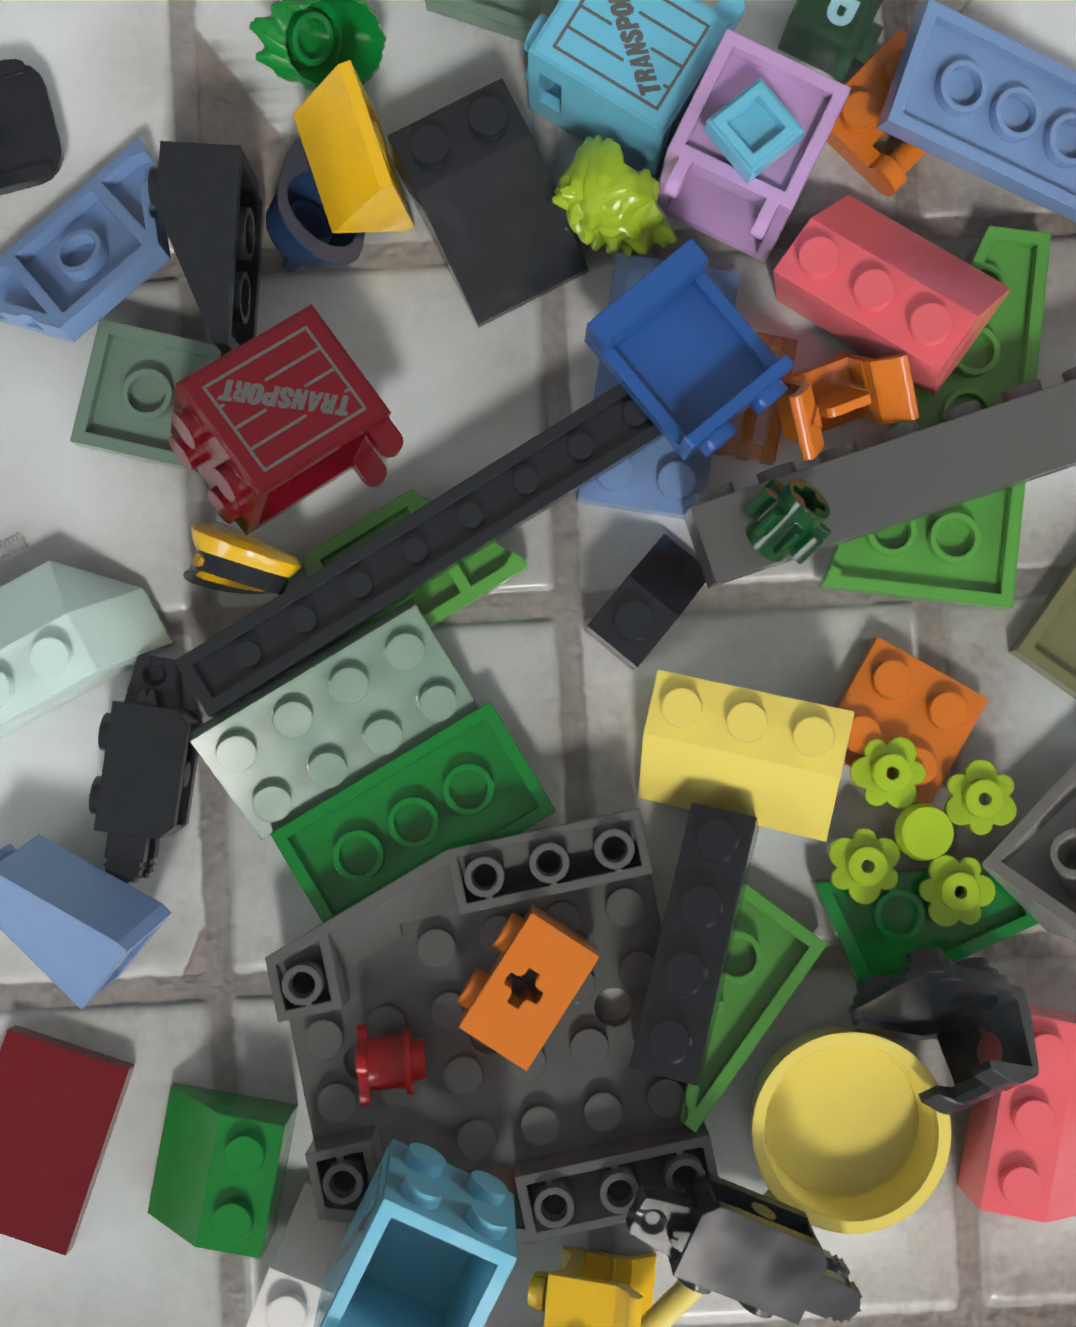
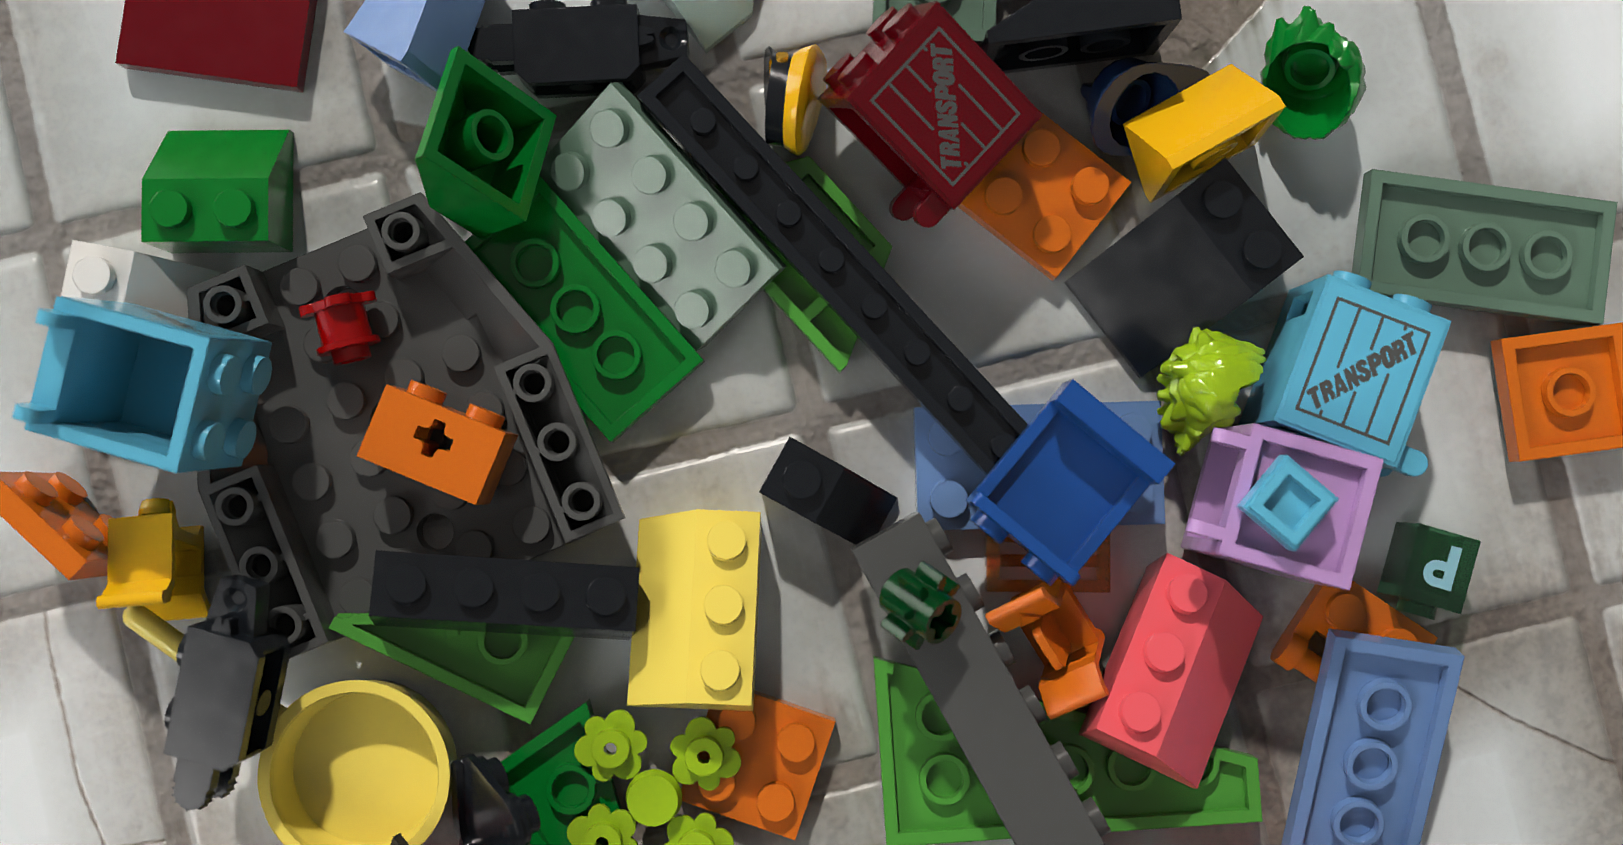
camera: 80 degrees right, 0 degrees up
(232, 883) = (482, 147): none -> green slope
(393, 324) = (1046, 196): none -> orange plate

